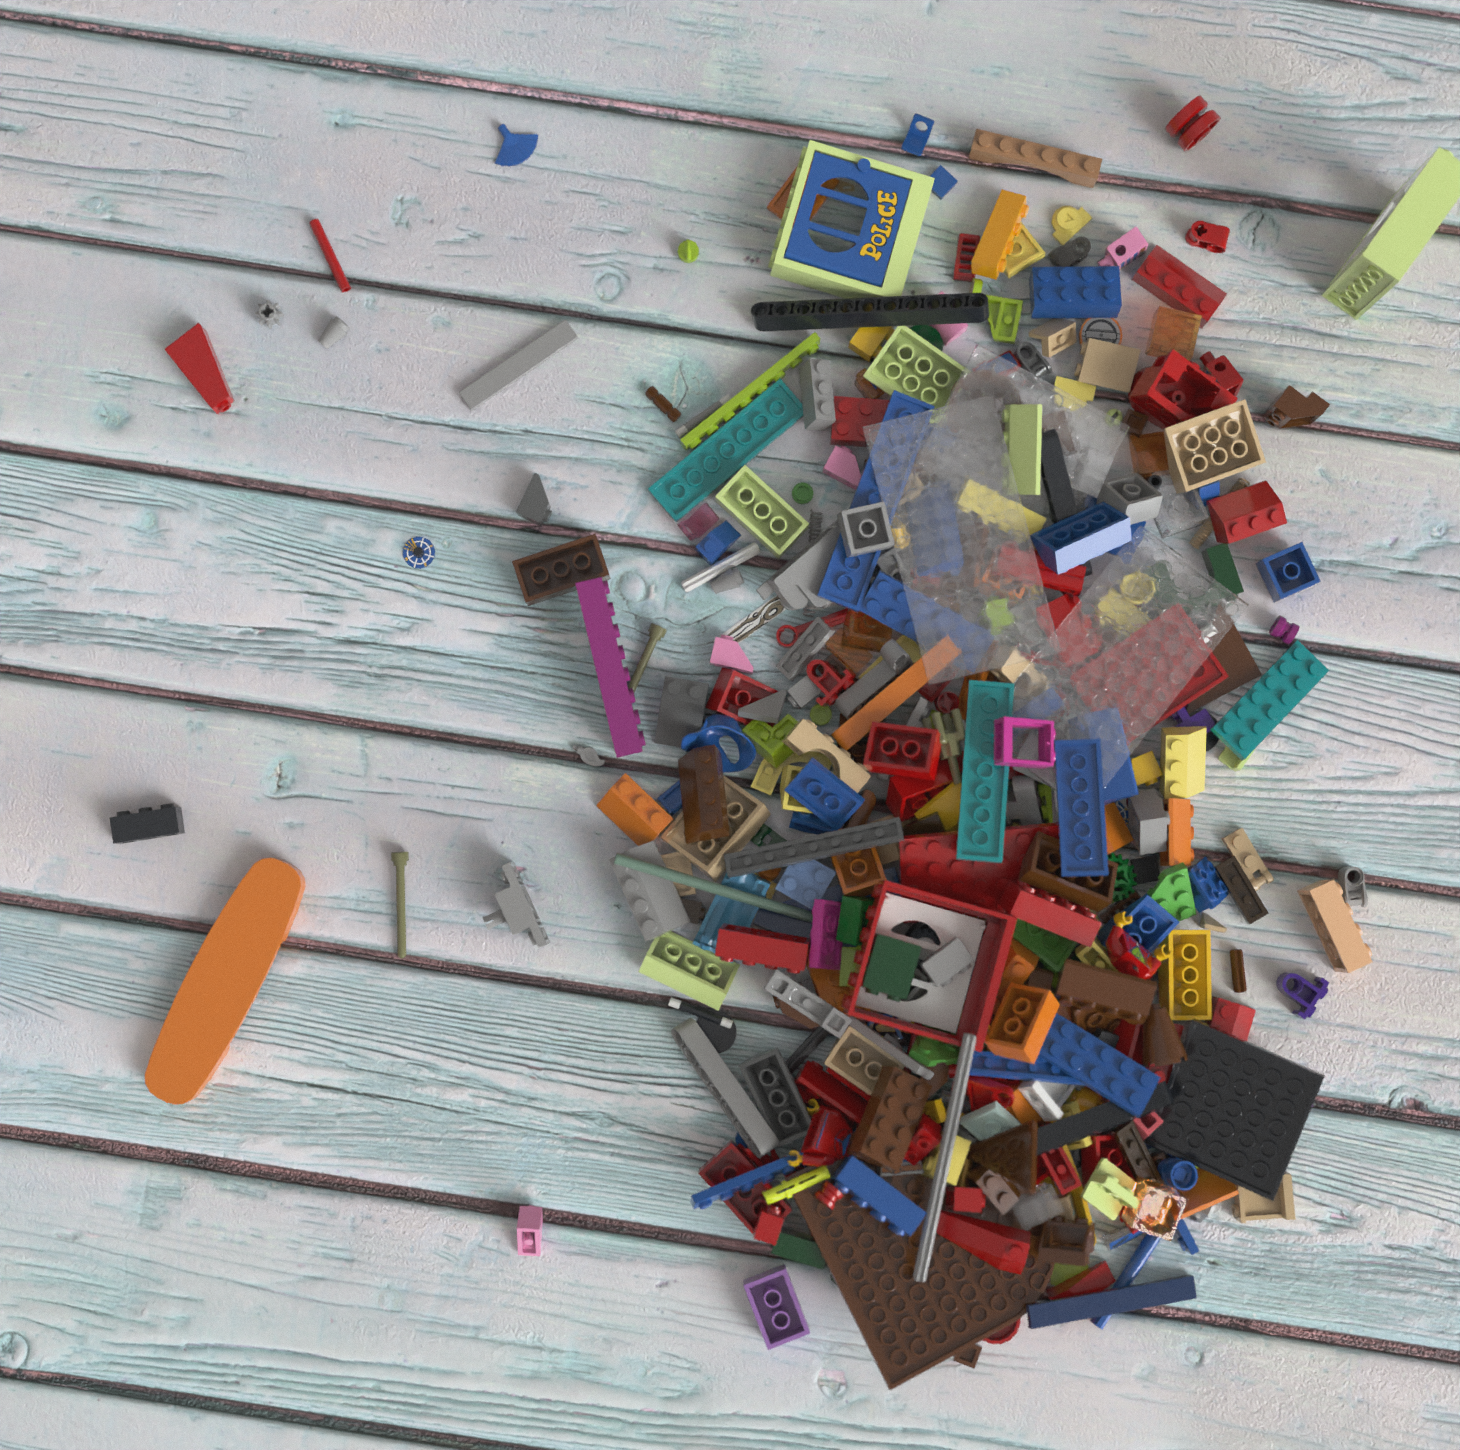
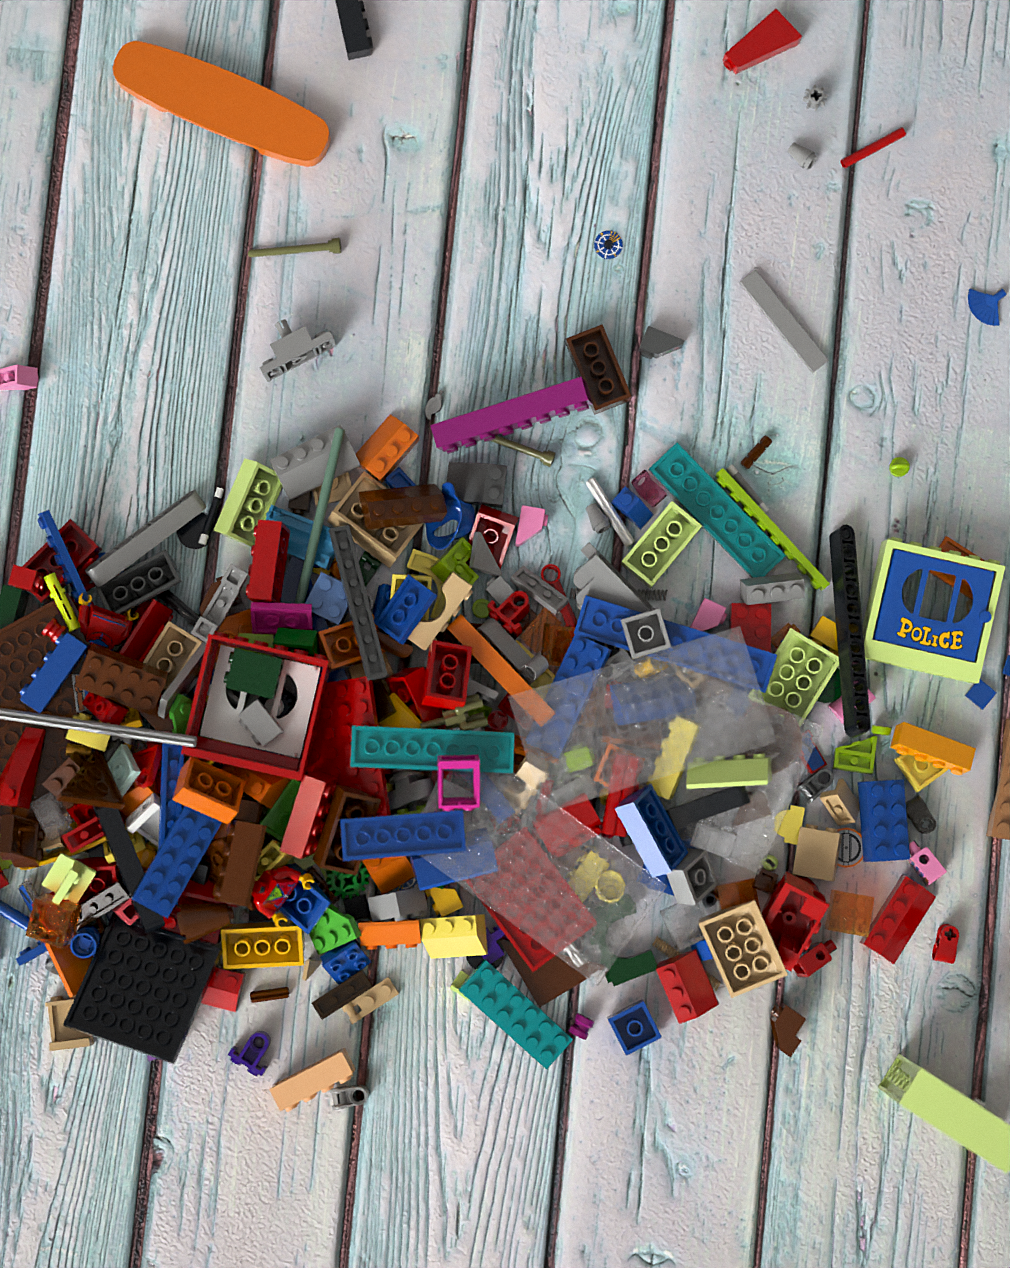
camera: 90 degrees right, 0 degrees up
(755, 620) = (562, 544): sticker -> none
(802, 493) = (682, 582): bright green plate -> none
(964, 1199) = (54, 750): red brick -> none
(965, 239) = (928, 718): red slope -> none
(1067, 222) = (951, 814): light yellow piece -> none

